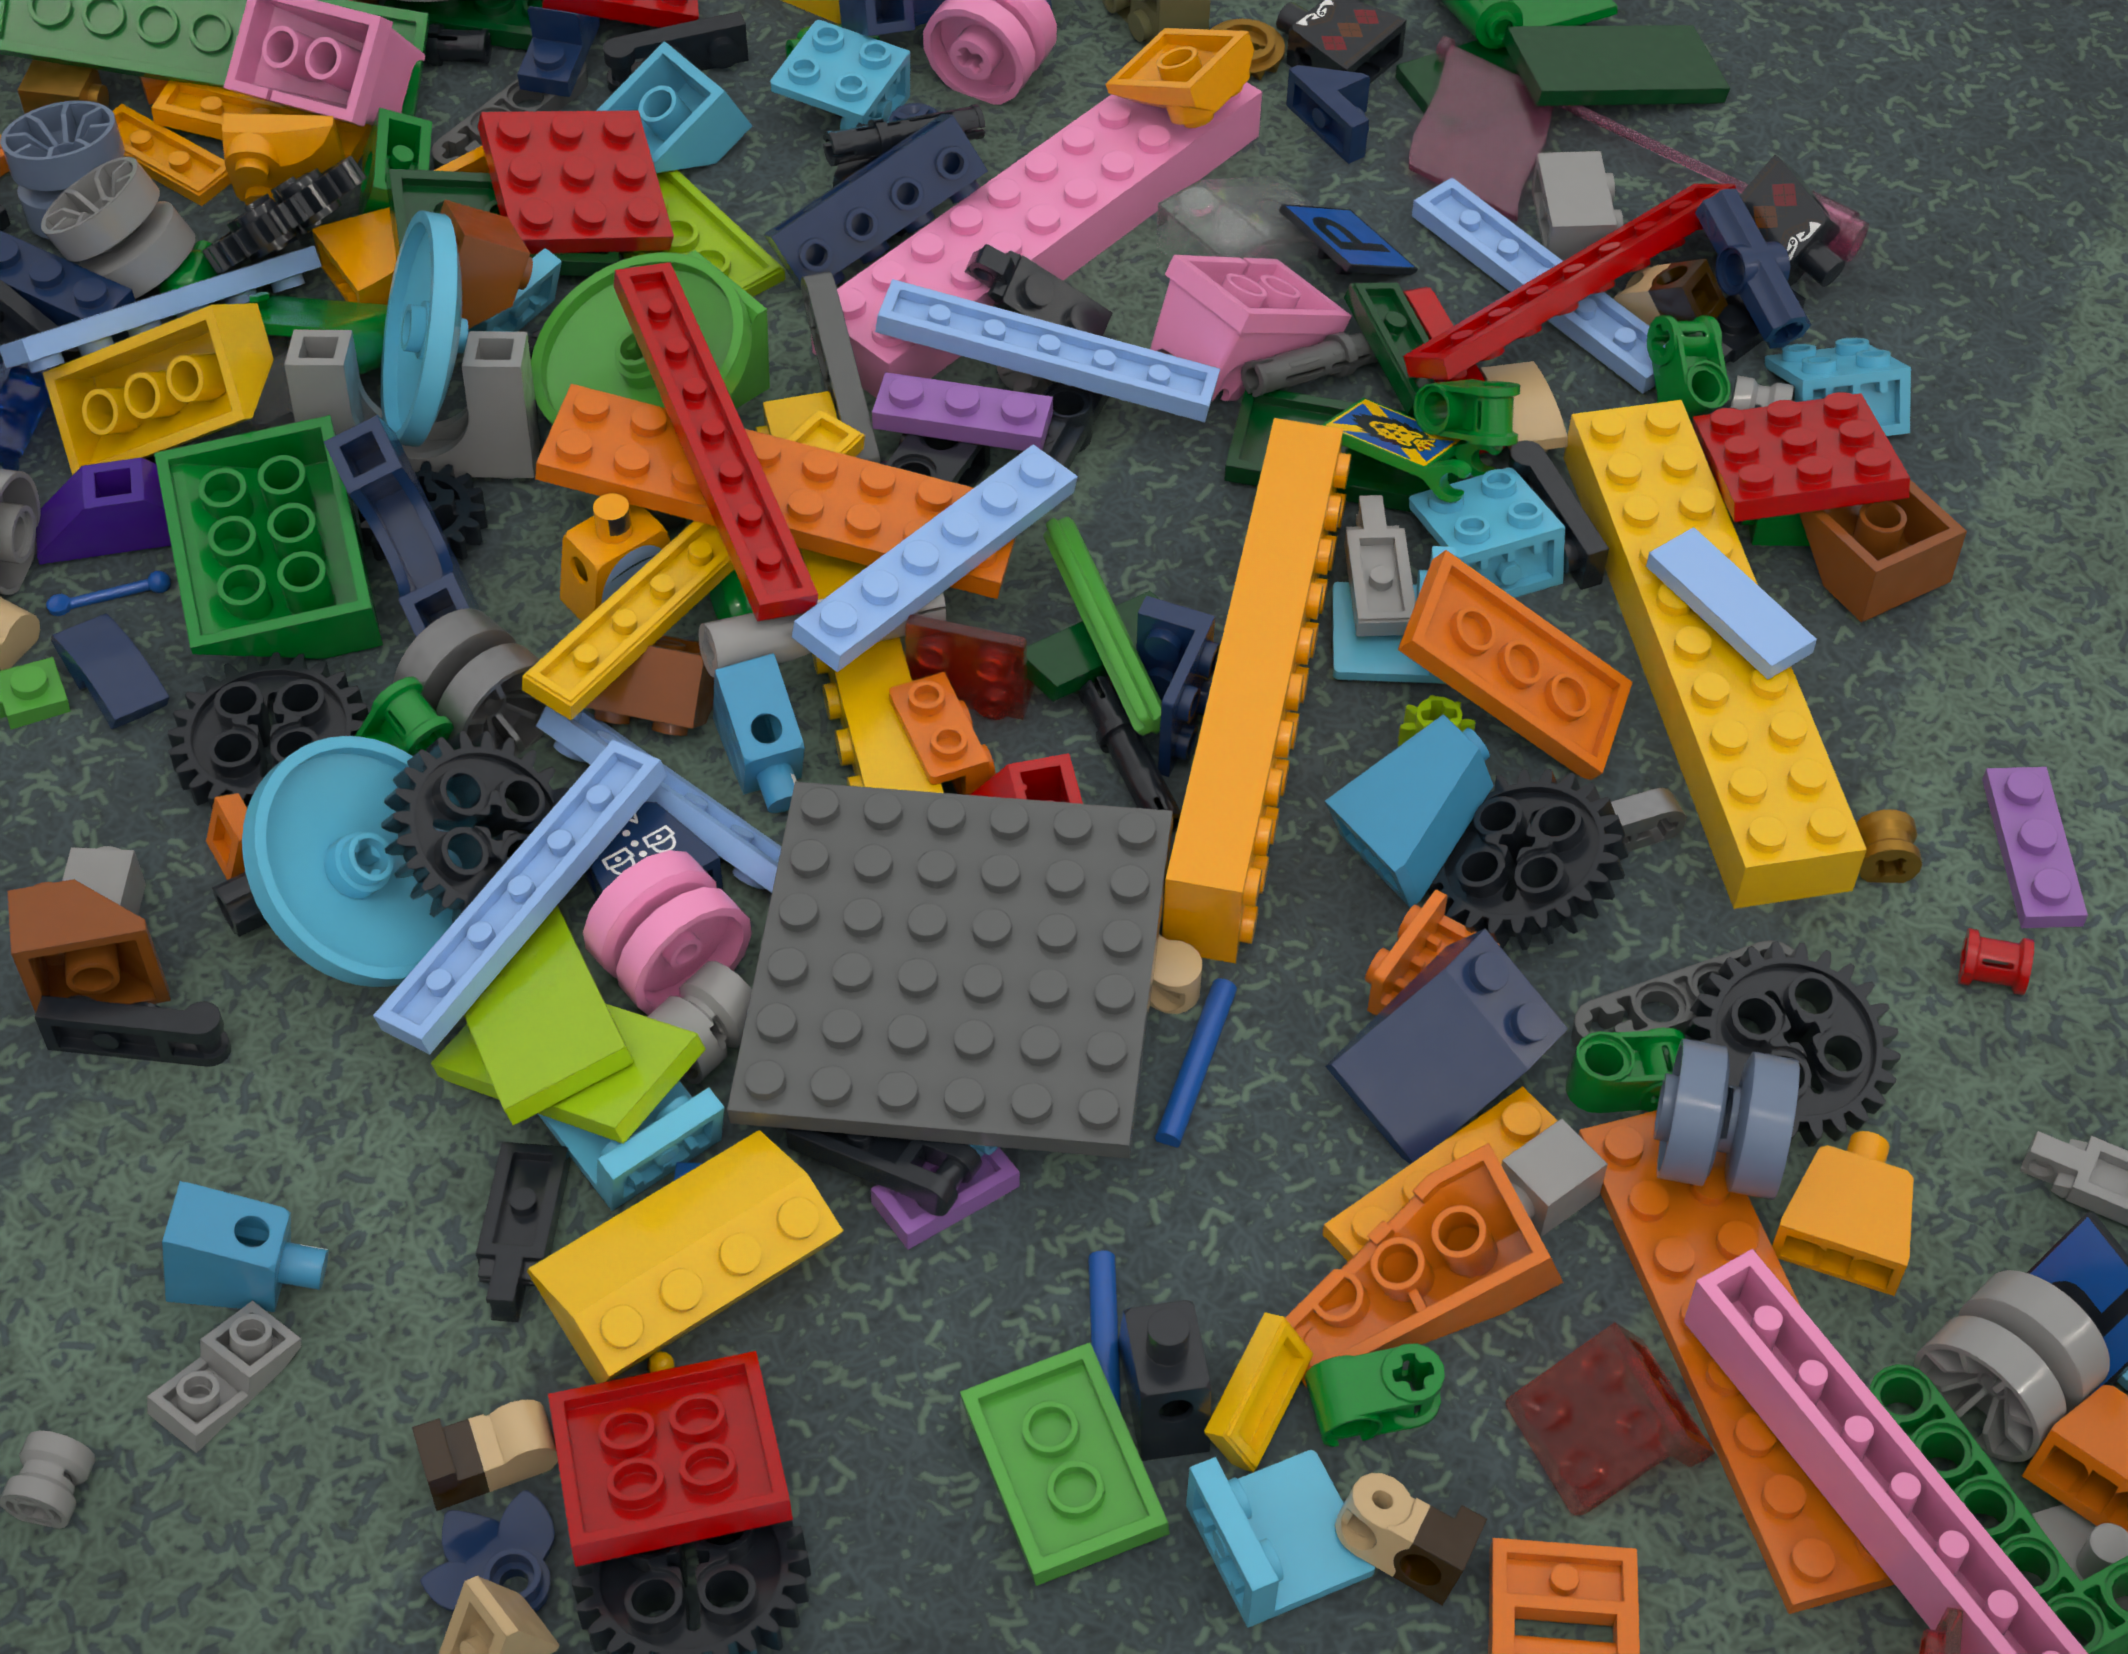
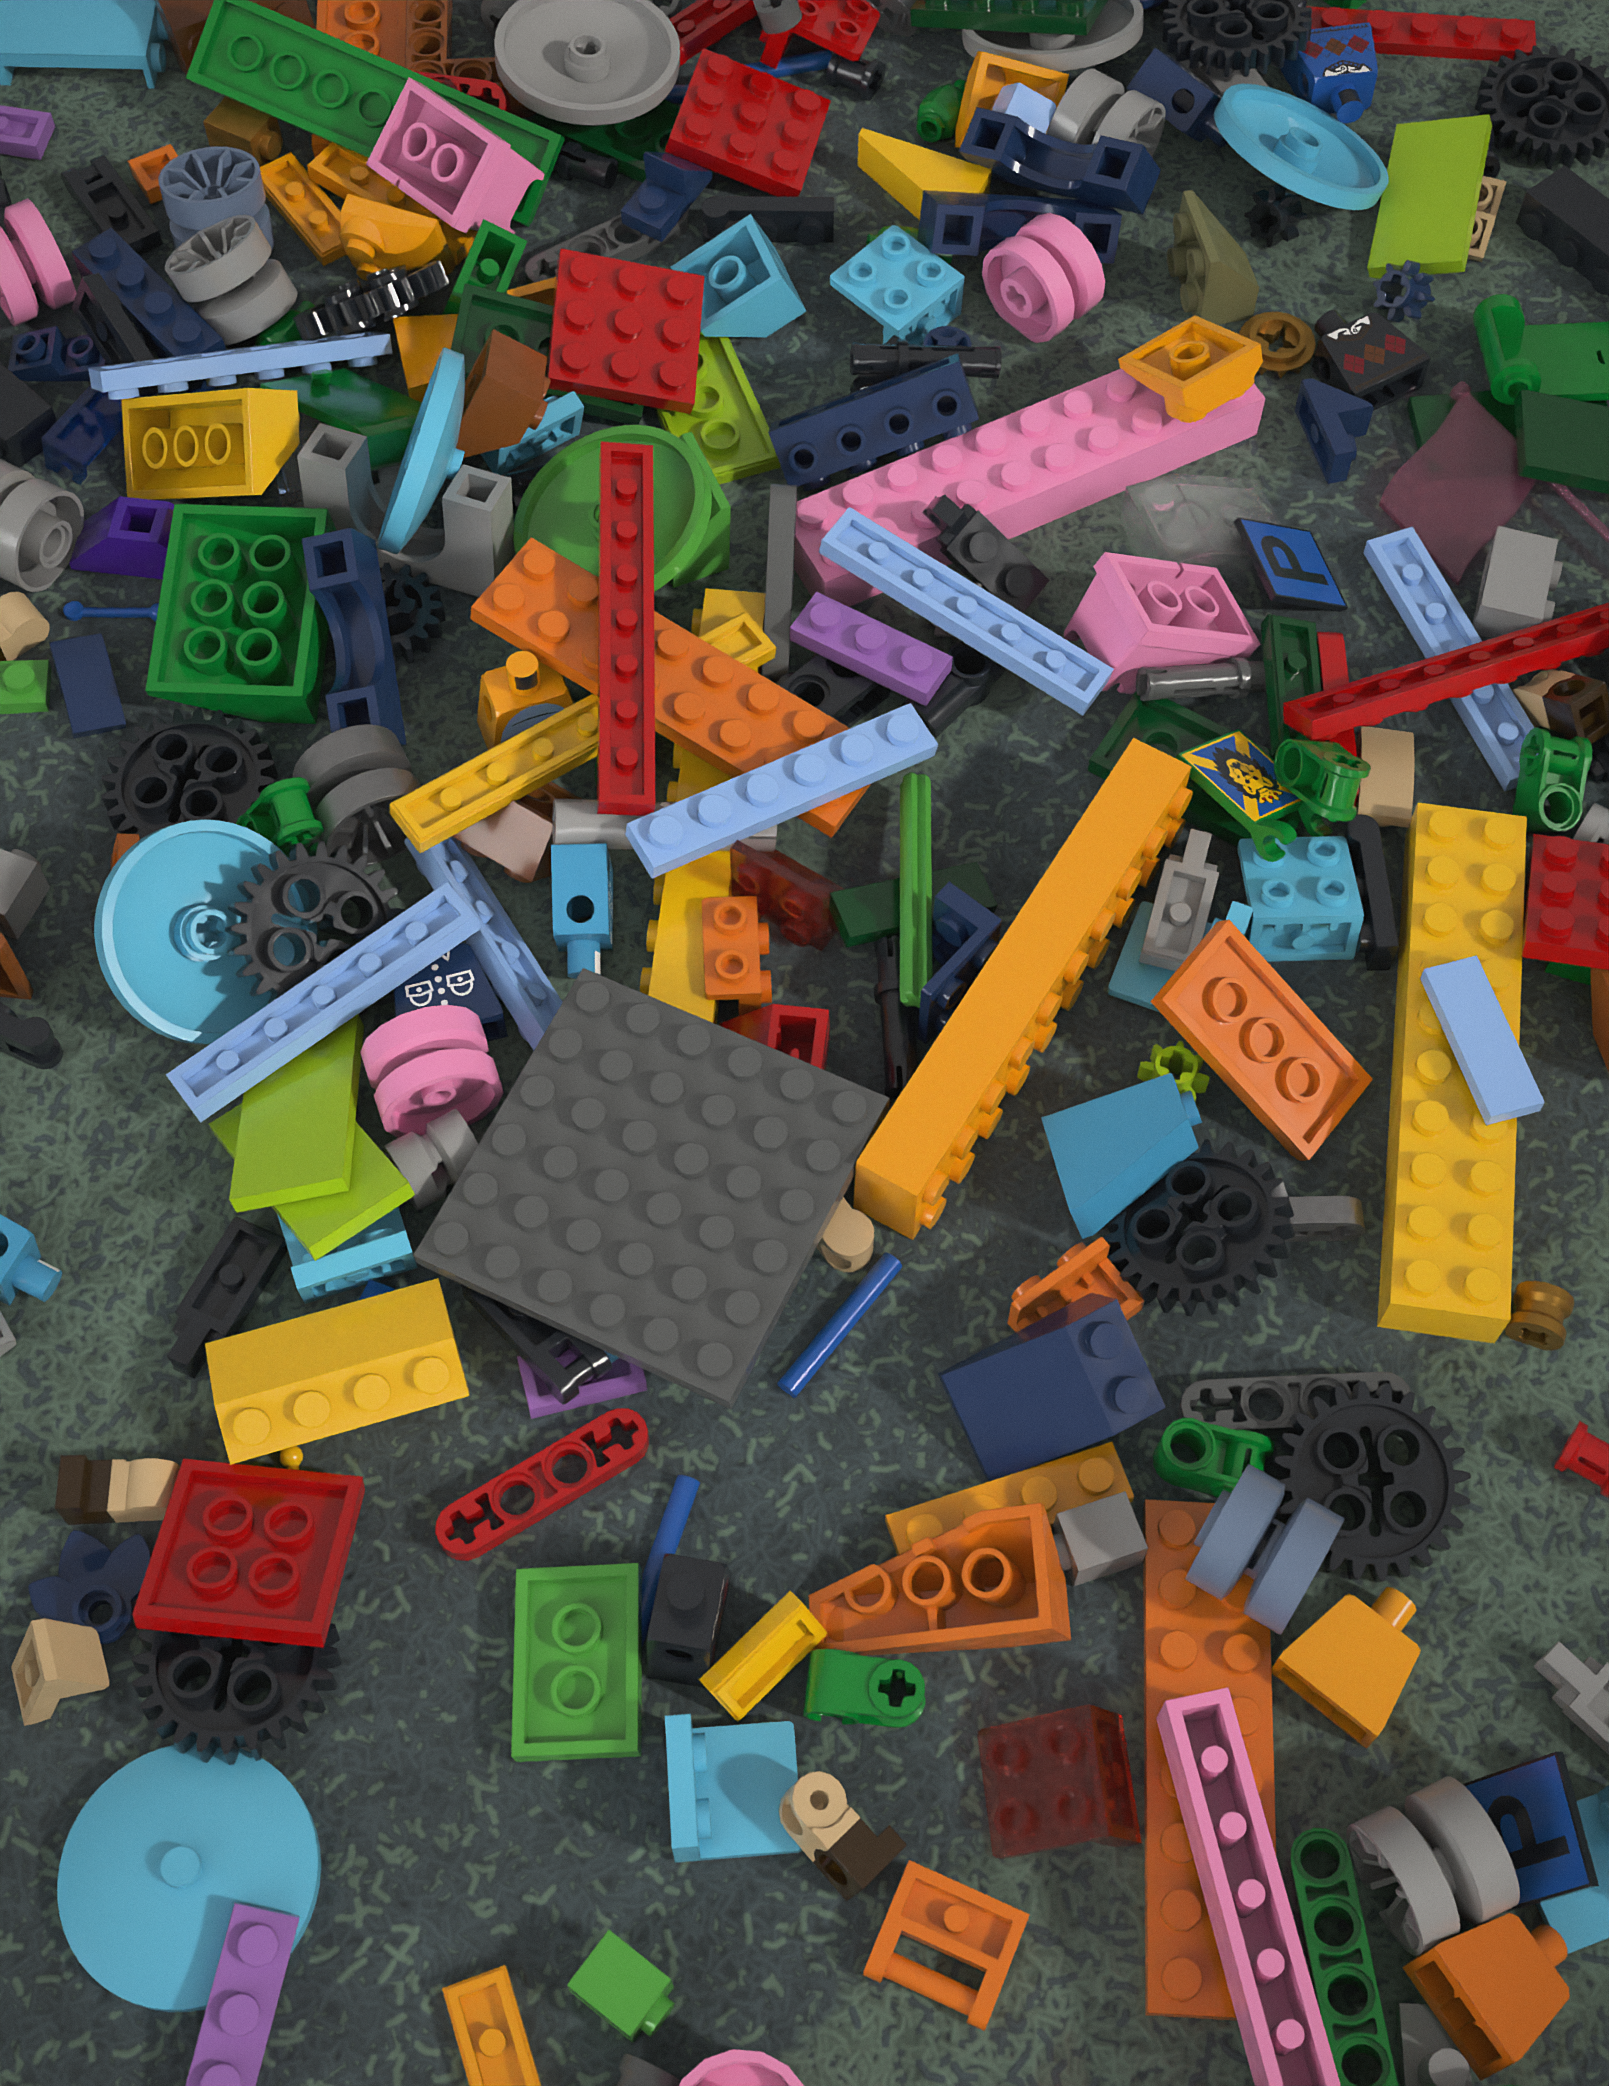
camera: 20 degrees right, 10 degrees up
(943, 1302) = (538, 1476): none -> red beam

